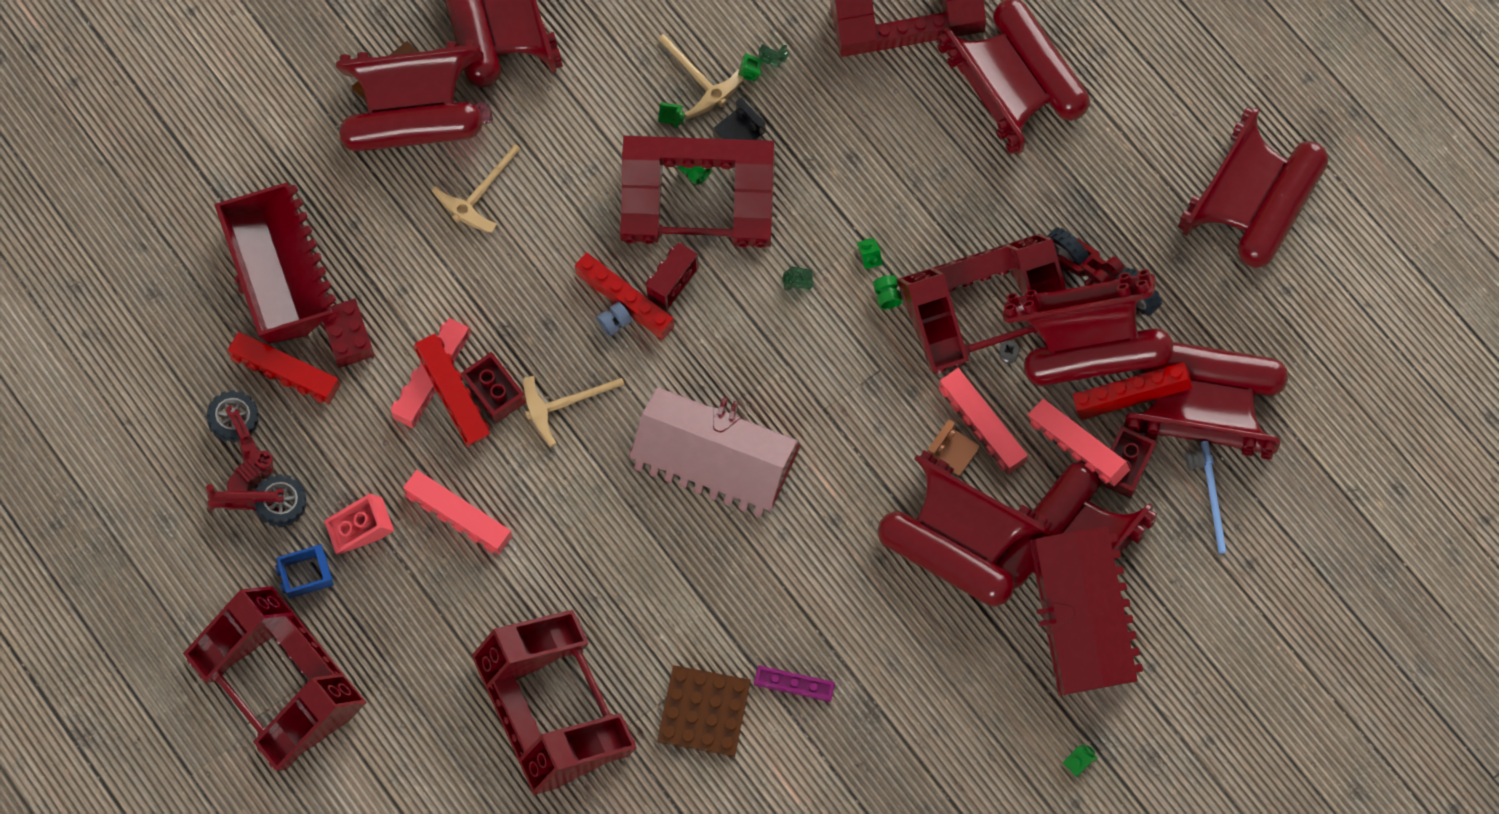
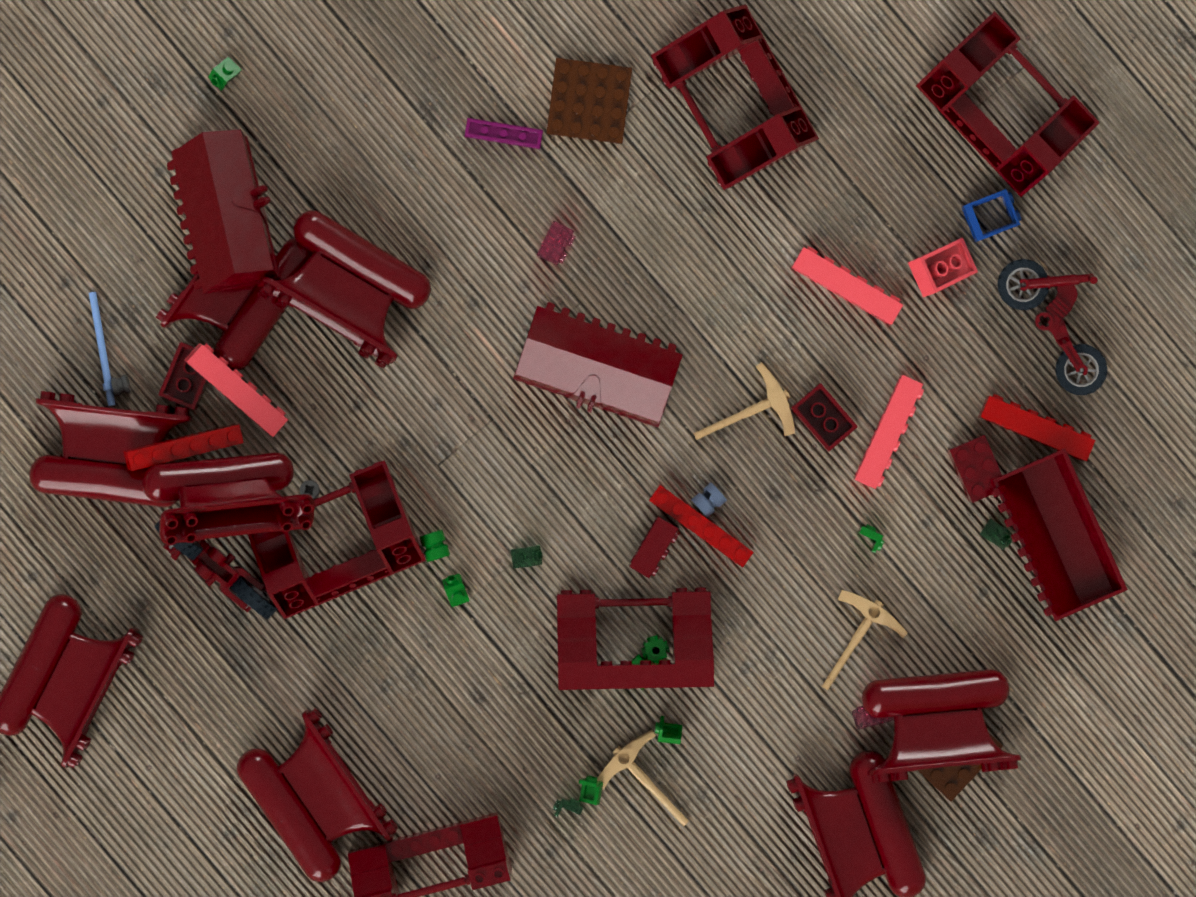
camera: 175 degrees right, 20 degrees up
(336, 273) = (997, 534): none -> clear green bracket
(451, 389) = (865, 409): red brick -> none
(456, 279) = (870, 532): none -> green bracket
(678, 187) = (653, 642): none -> green brick
(741, 124) = (596, 721): black bracket -> none
(748, 570) = (556, 243): none -> clear pink brick
(953, 448) = (360, 381): nougat bracket -> none
(983, 421) = (332, 413): coral brick -> none

